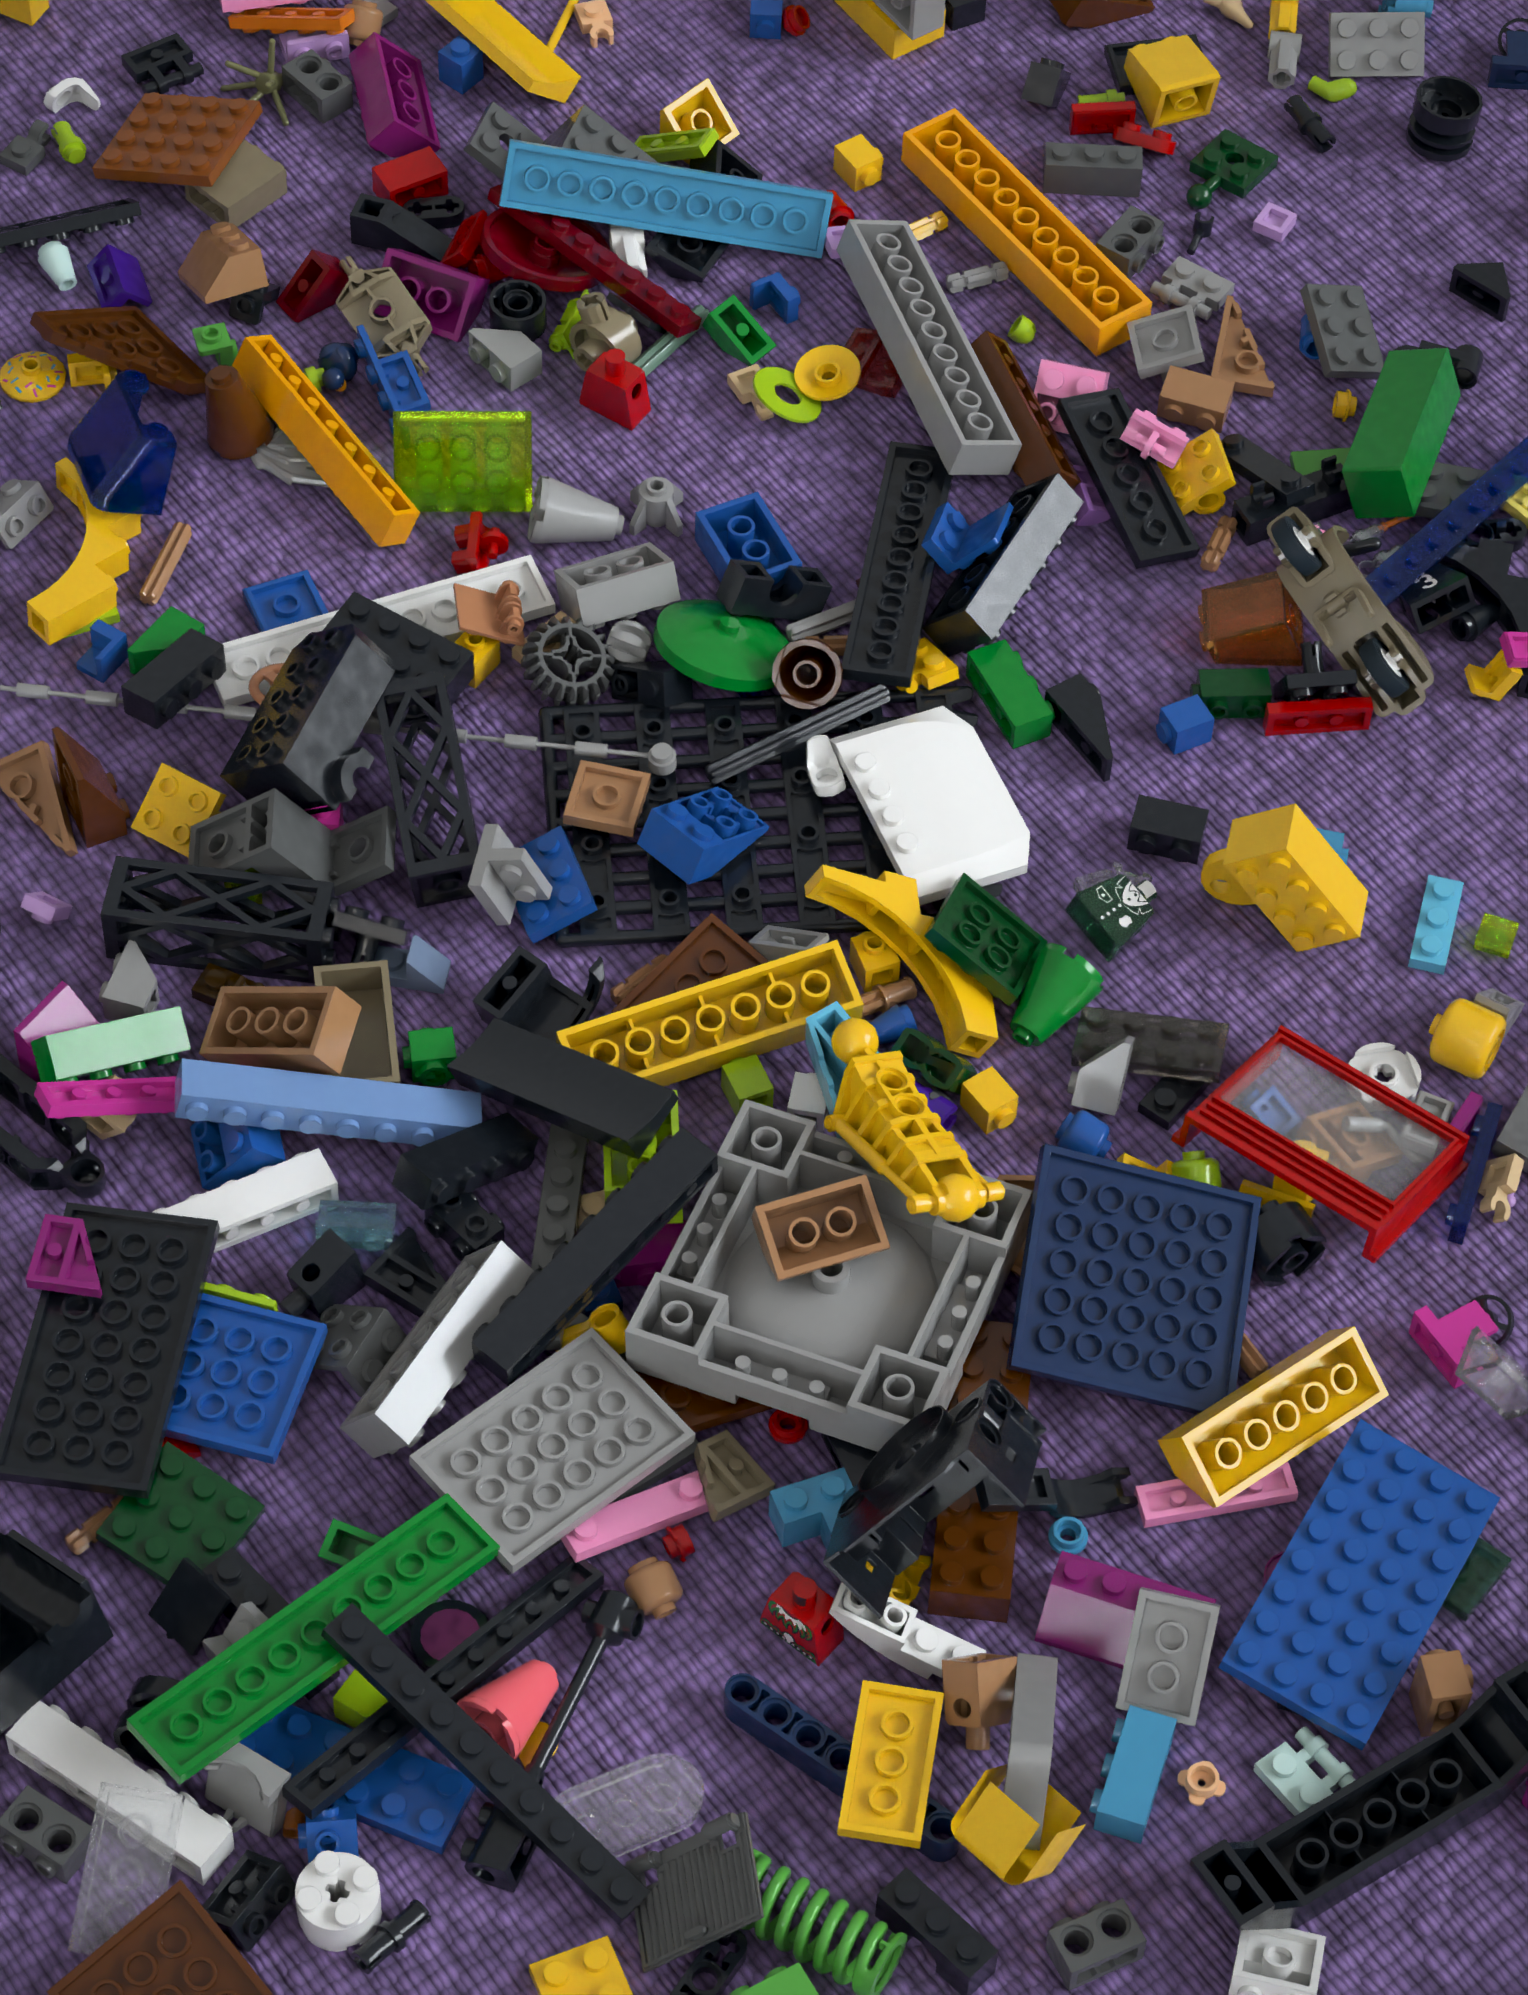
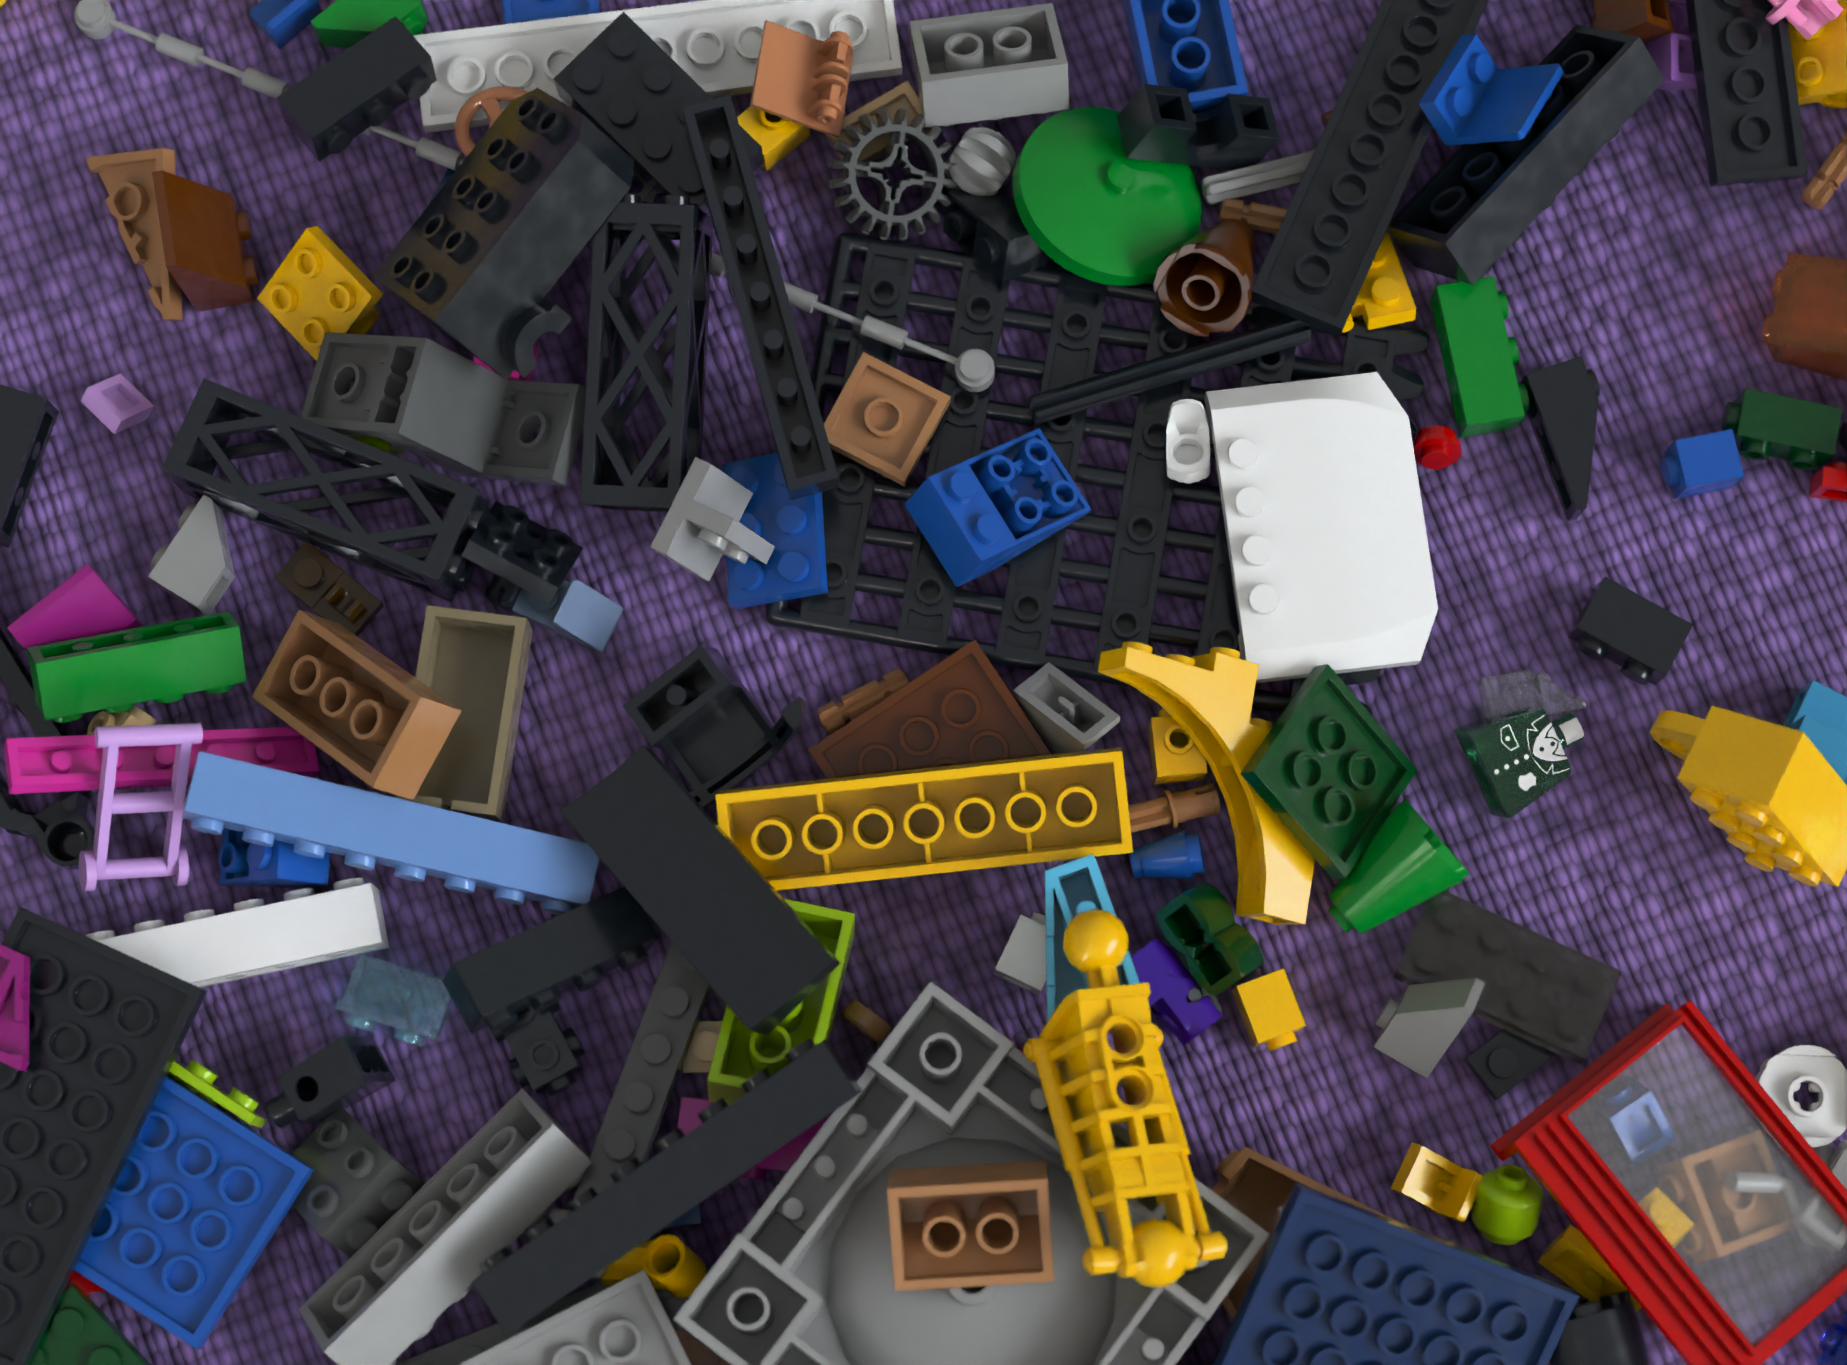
camera: 15 degrees right, 25 degrees up
(167, 1173) = (174, 862): none -> lavender piece
(405, 1274) = (444, 1090): black wing -> none
(429, 1055) = (556, 760): green brick -> none
(503, 729) = (760, 297): none -> black brick
(746, 1080) = (955, 908): lime brick -> none
(1000, 750) = (1436, 447): none -> red plate
(1084, 1134) = (1376, 1098): blue head -> none

